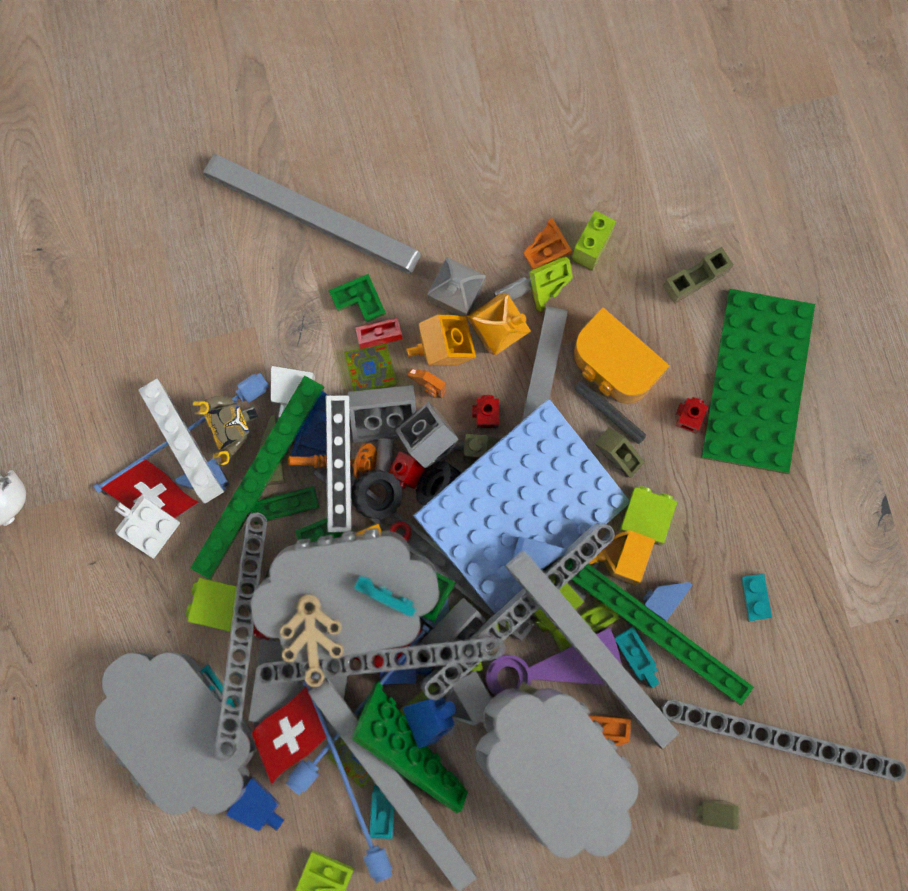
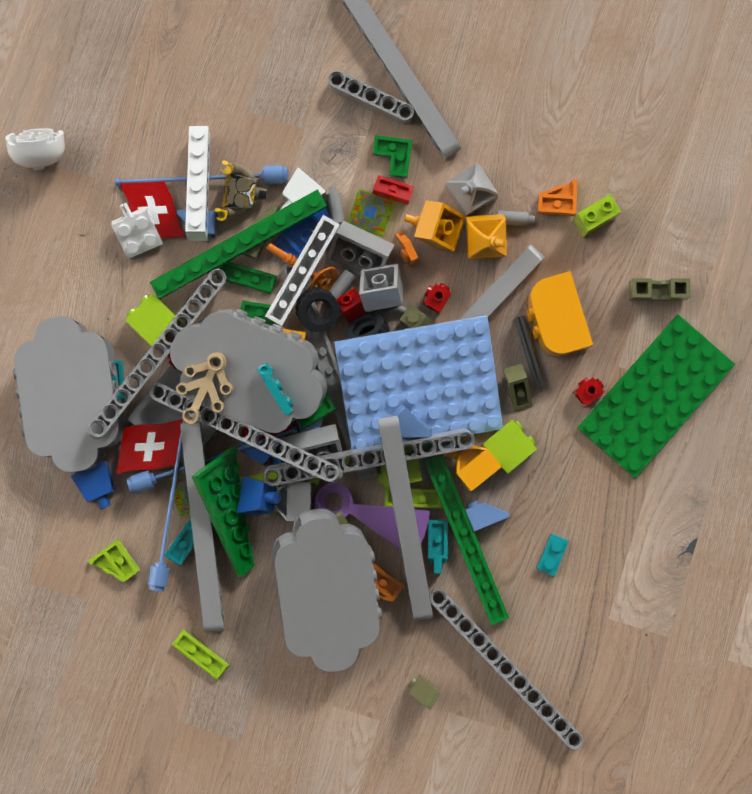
camera: 30 degrees right, 5 degrees up
(292, 253) = (364, 91): none -> light grey beam
(330, 381) = (335, 205): none -> light grey cylinder
(402, 525) = (323, 343): red plate -> none
(549, 280) = (545, 226): lime wing -> none

